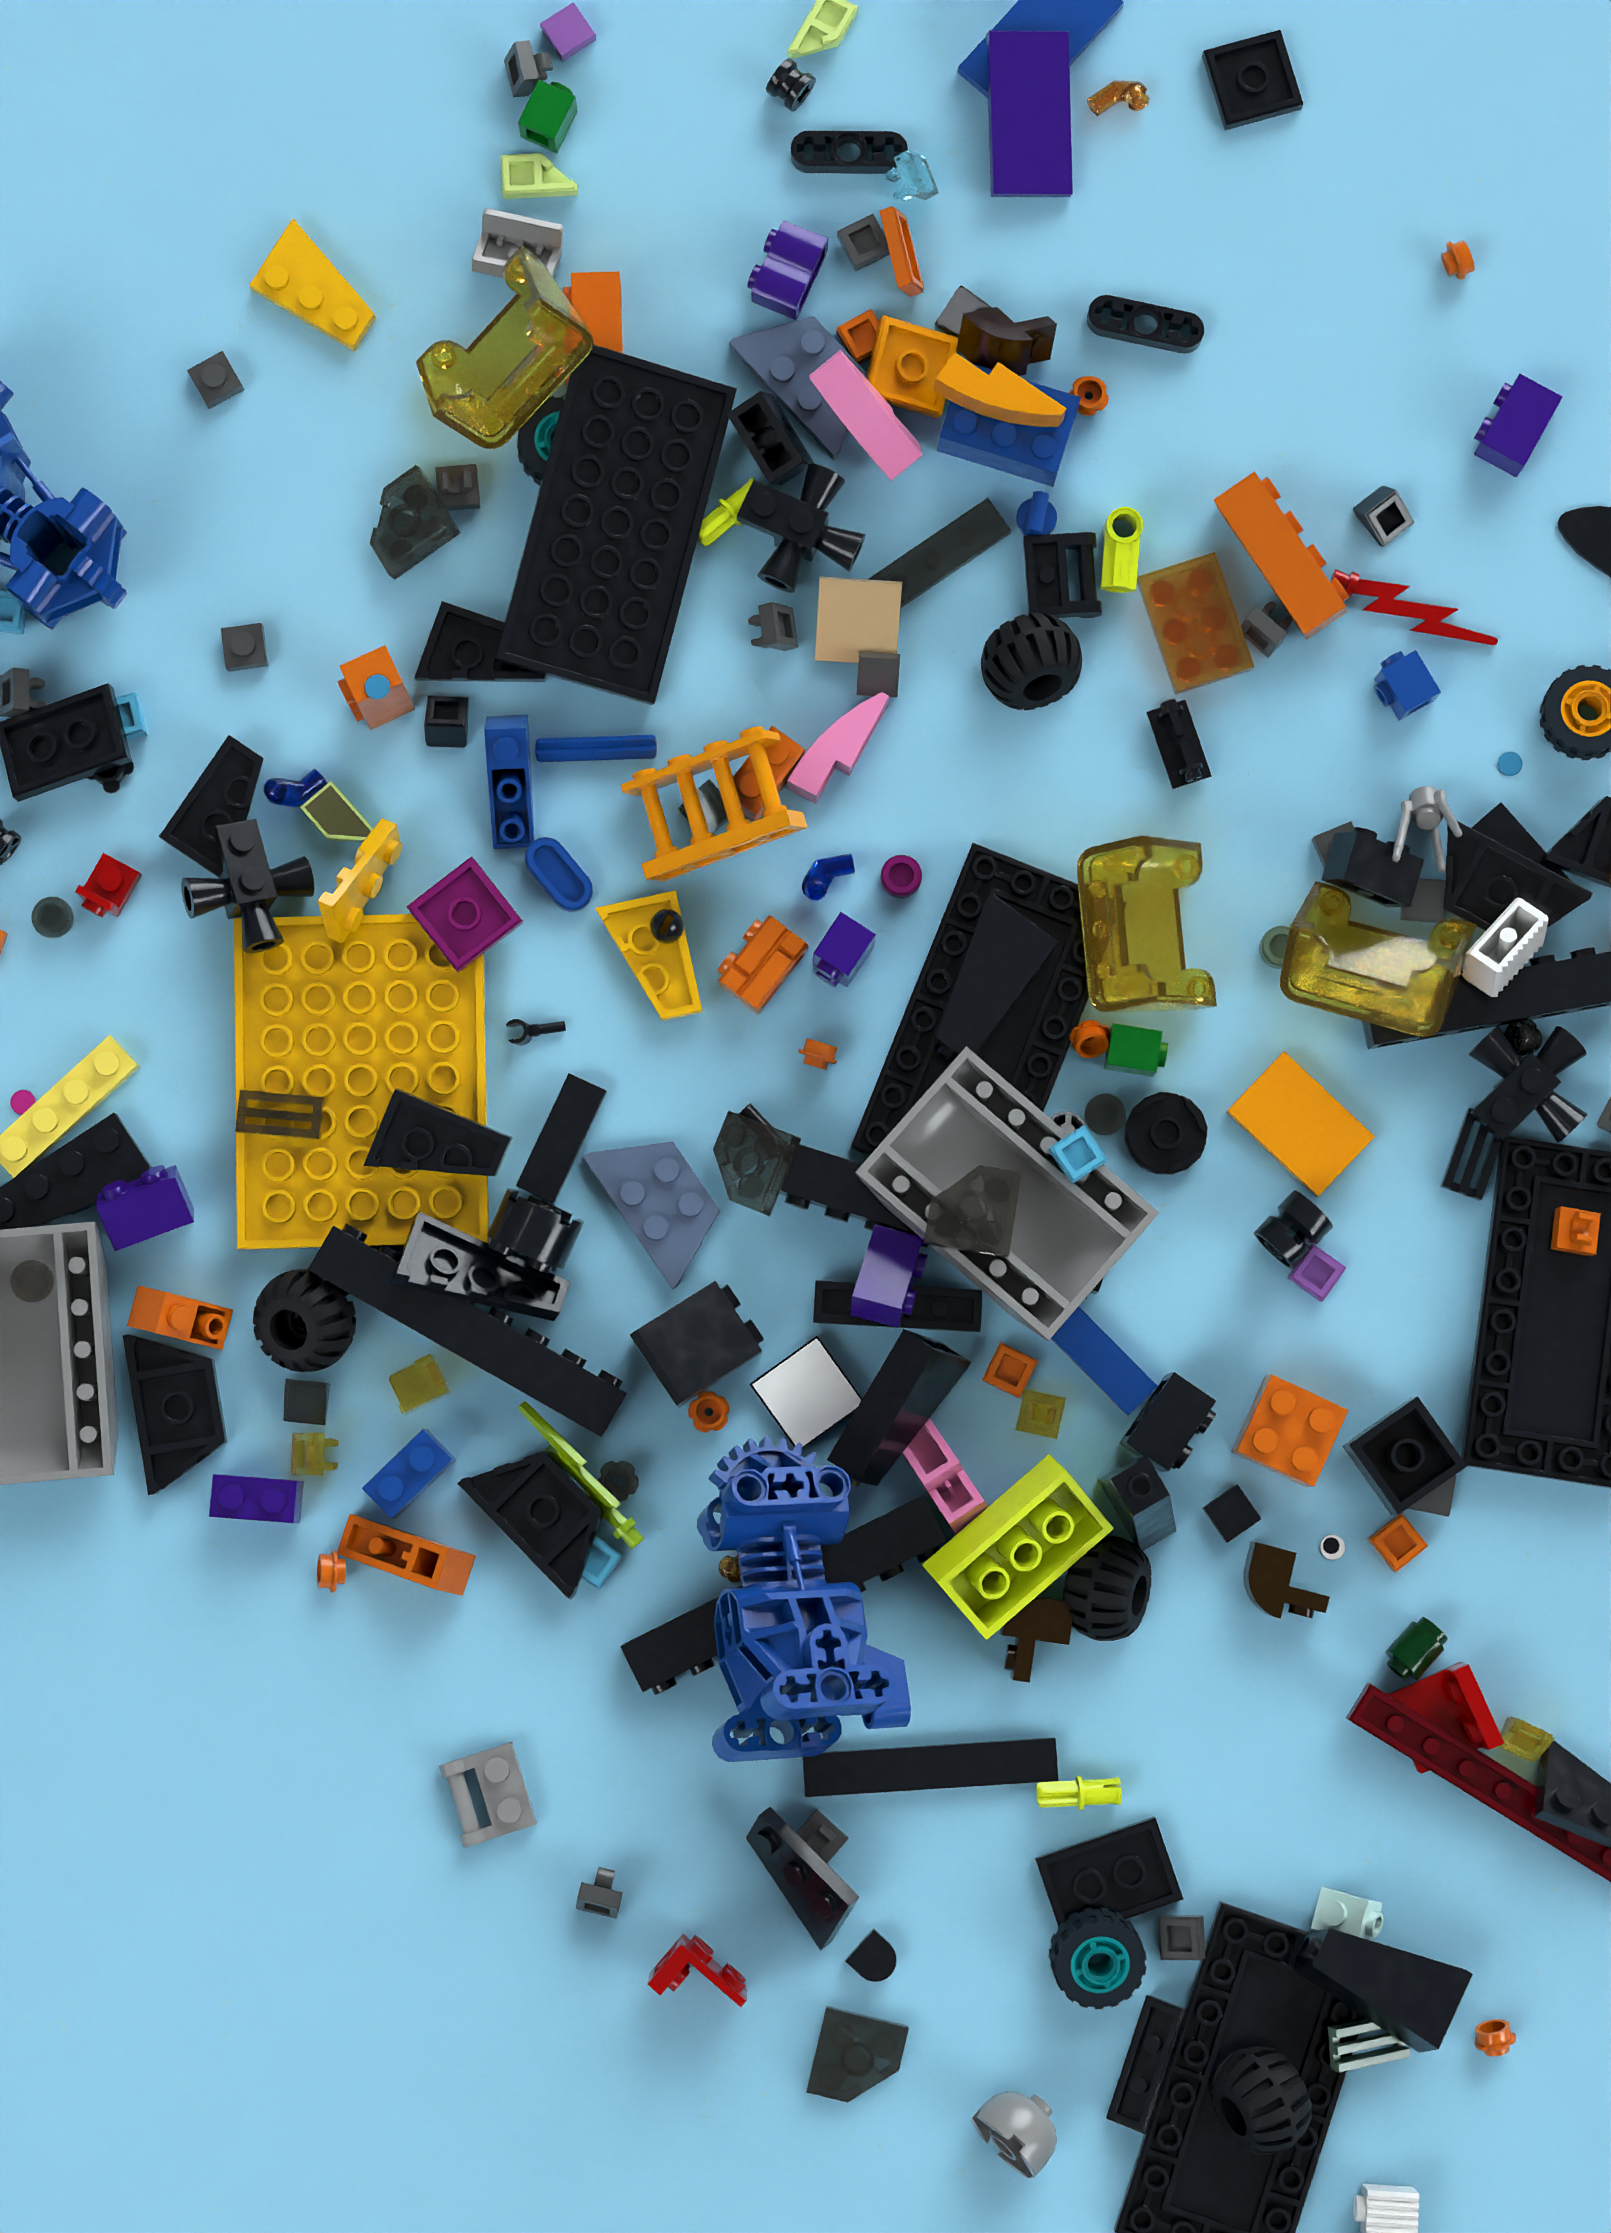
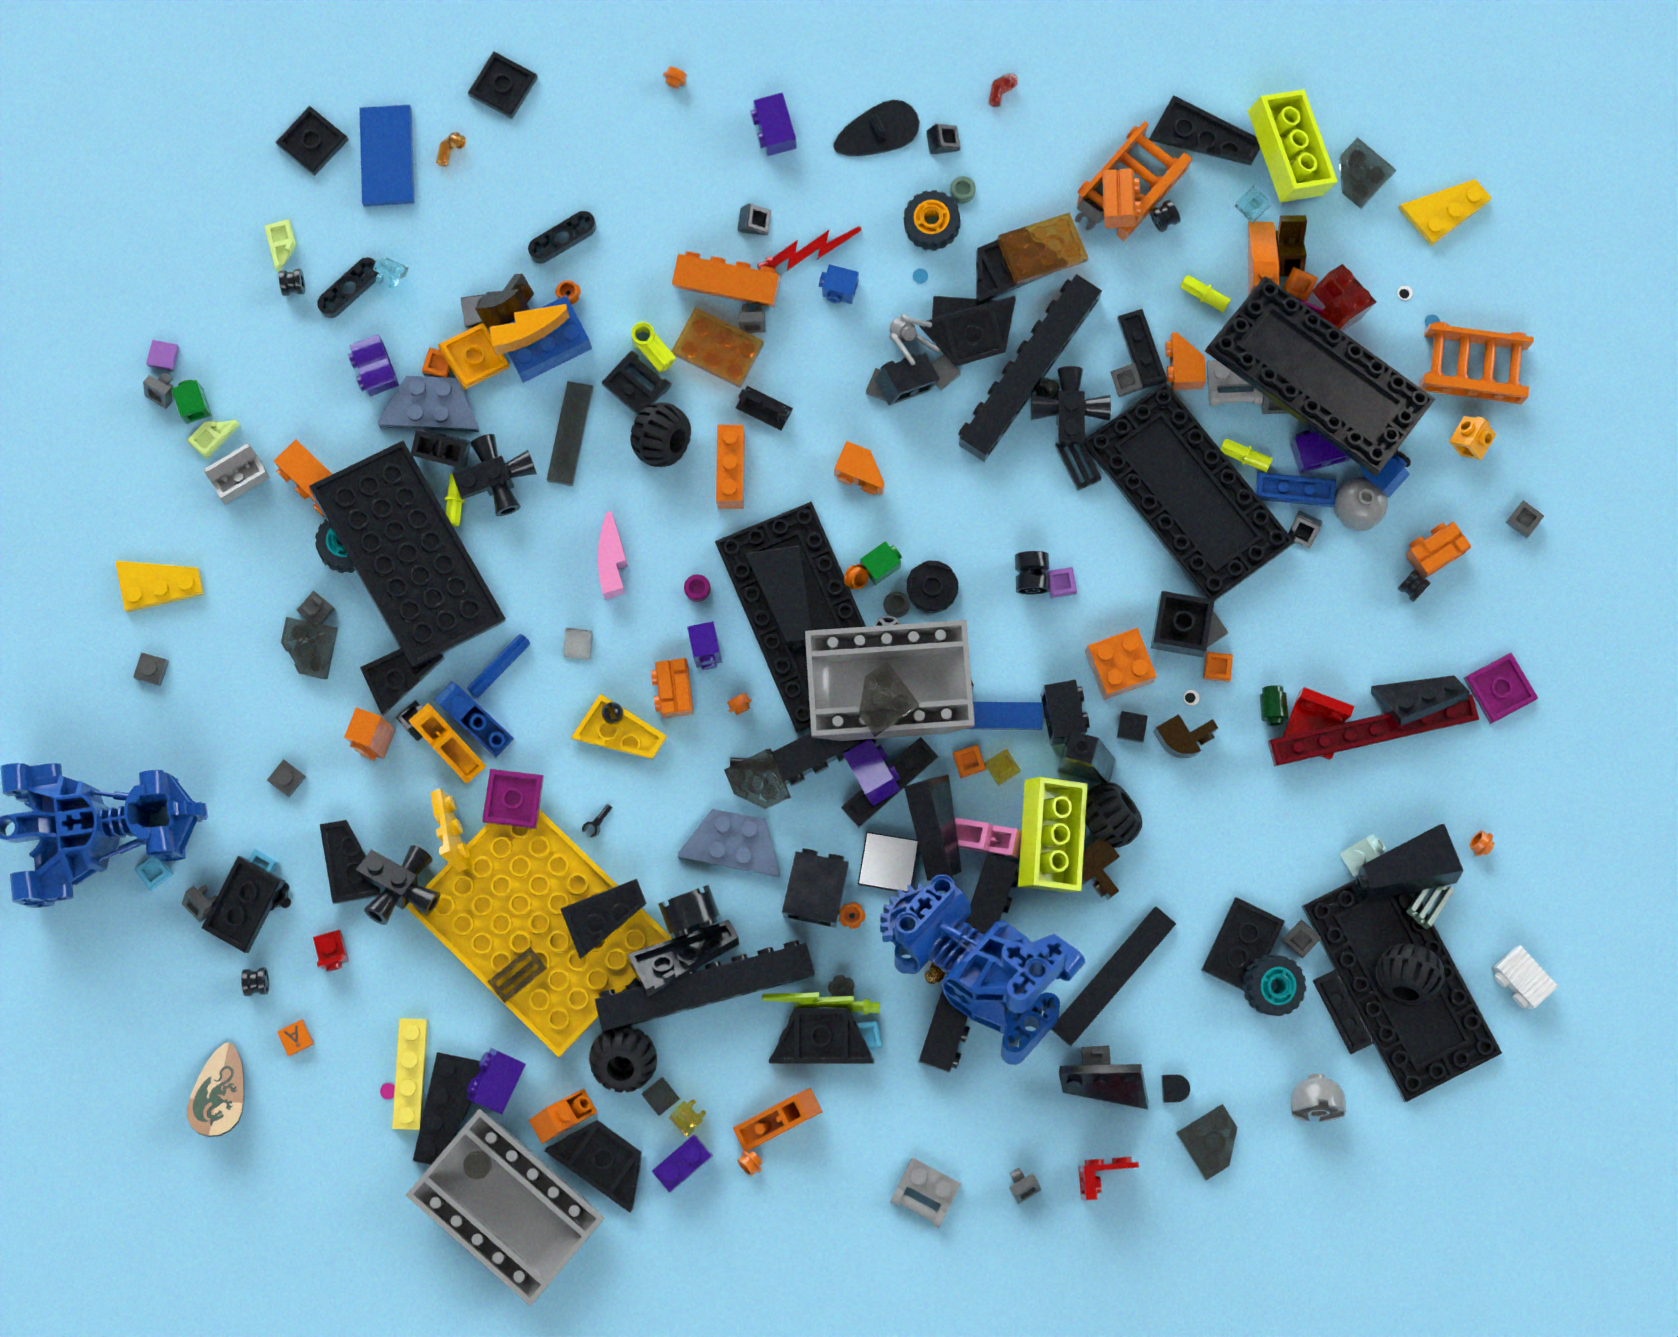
camera: 40 degrees left, 5 degrees down
(52, 917) = (317, 990): clear smoke plate -> none
(293, 793) = (376, 822): clear blue arm -> none
(336, 815) = (407, 813): olive tile -> none
(377, 686) = (371, 729): dark azure sticker -> none
(409, 1474) = (742, 1080): blue brick -> none
(419, 1384) = (705, 1035): clear yellow panel -> none
(454, 780) = (447, 743): none -> light orange slope
(512, 363) = (286, 526): clear yellow windscreen -> none
(558, 874) = (538, 739): blue tile -> none
(561, 1138) = (659, 858): black tile -> none
(740, 833) = (604, 636): light orange fence -> none
(776, 625) = (527, 529): dark grey tile -> none
(782, 759) = (588, 601): orange brick -> none
(823, 872) = (659, 620): clear blue arm -> none
(856, 618) = (563, 491): tan tile -> none
(863, 242) = (396, 321): dark grey plate -> none
(866, 415) = (475, 395): bright pink slope -> none
(878, 673) = (595, 507): dark grey tile -> none
(902, 251) = (418, 308): orange tile -> none
(1029, 113) = (416, 193): dark purple tile -> none
(1036, 515) = (597, 367): blue plate -> none
(1073, 774) = (730, 466): none -> orange brick
(1078, 1154) = (904, 629): medium azure tile -> none
(1079, 1793) = (1191, 919): neon yellow axle -> none
(1136, 926) = (825, 506): clear yellow windscreen -> none
(1218, 916) = (859, 467): none -> orange slope
(1273, 946) = (900, 454): sand green tile -> none
(1300, 1124) = (988, 524): light orange tile -> none
(1369, 969) = (951, 423): clear yellow windscreen -> none
(1505, 947) = (1000, 355): white brick -> none
(1524, 1739) = (1361, 697): clear yellow slope -> none
(1575, 1231) = (1156, 451): orange tile -> none

